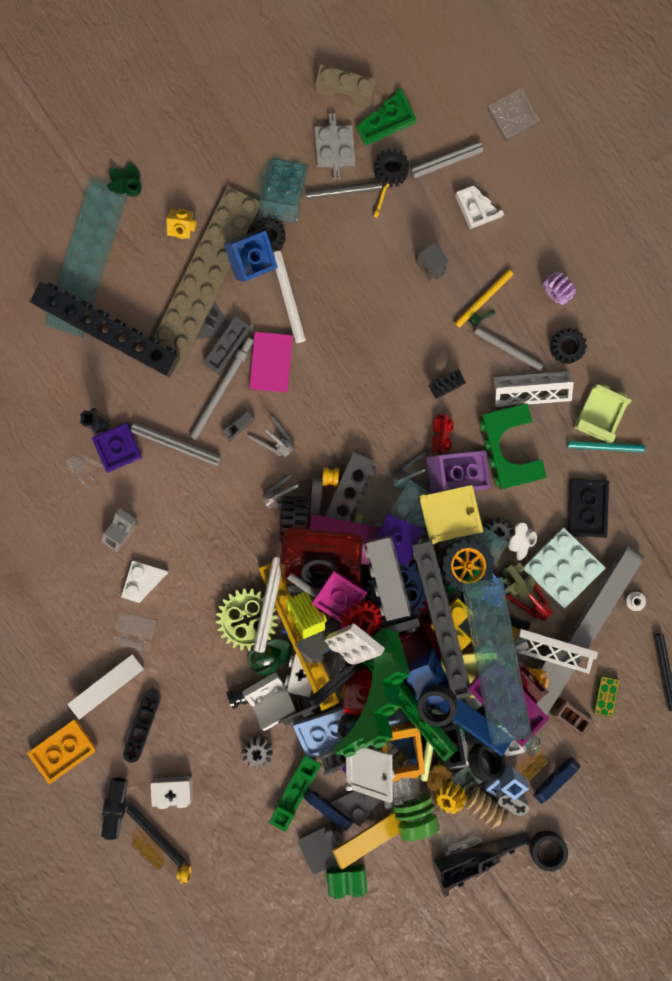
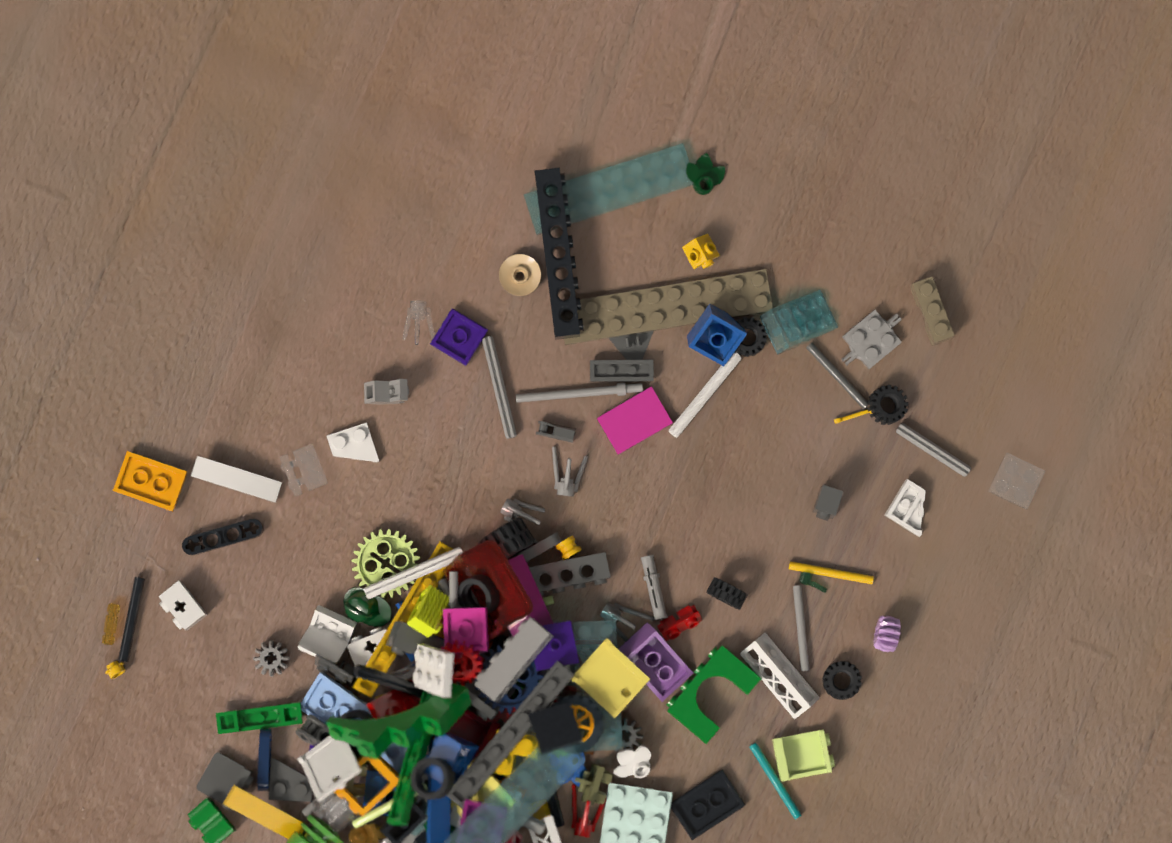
camera: 55 degrees right, 5 degrees down
(94, 420) = (469, 302): black piece -> none
(96, 363) = (519, 264): none -> tan dish
(114, 808) = (131, 564): black piece -> none
(236, 697) = (308, 604): black wheel -> none
(388, 119) = (929, 370): green wing -> none
(403, 434) = (654, 589): none -> light grey pin
(463, 583) = (555, 728): none -> black tile

